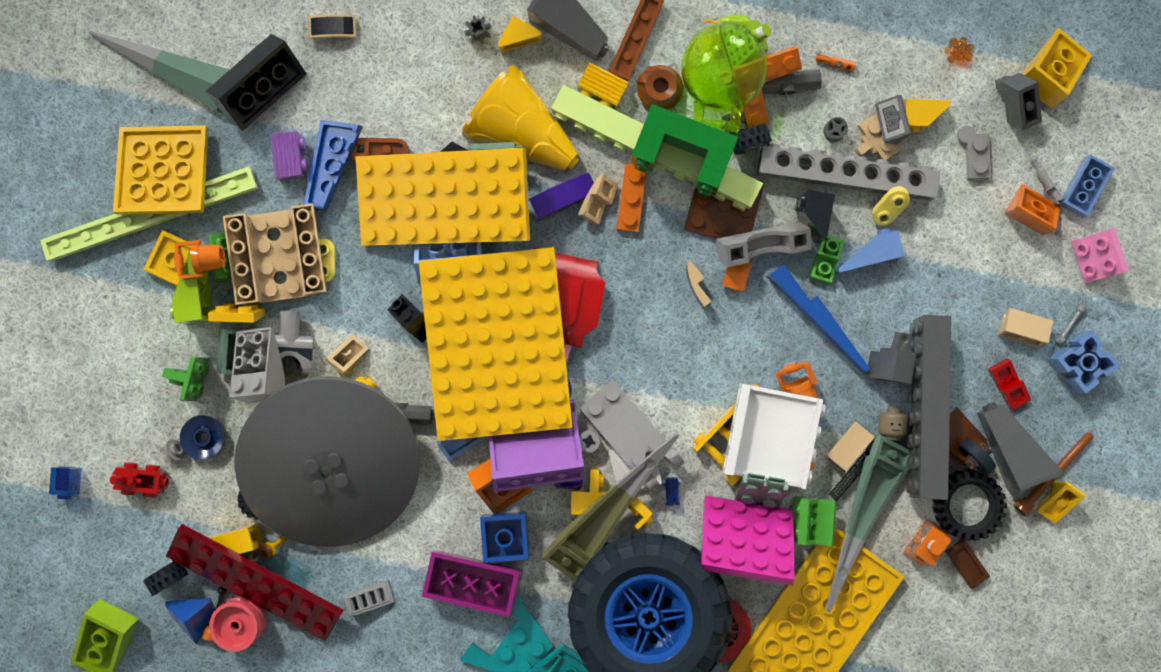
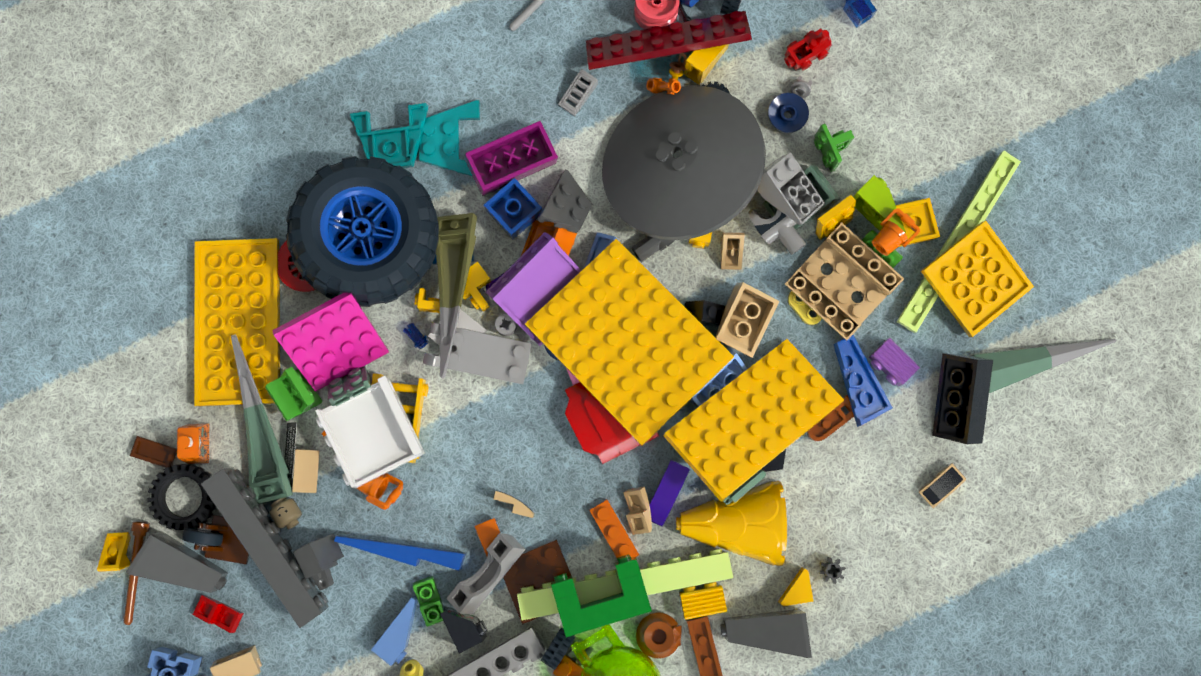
camera: 135 degrees right, 5 degrees down
(295, 550) = (656, 86): none -> orange bar
(382, 287) = (746, 318): none -> tan slope
(456, 504) = (566, 204): none -> dark grey wing

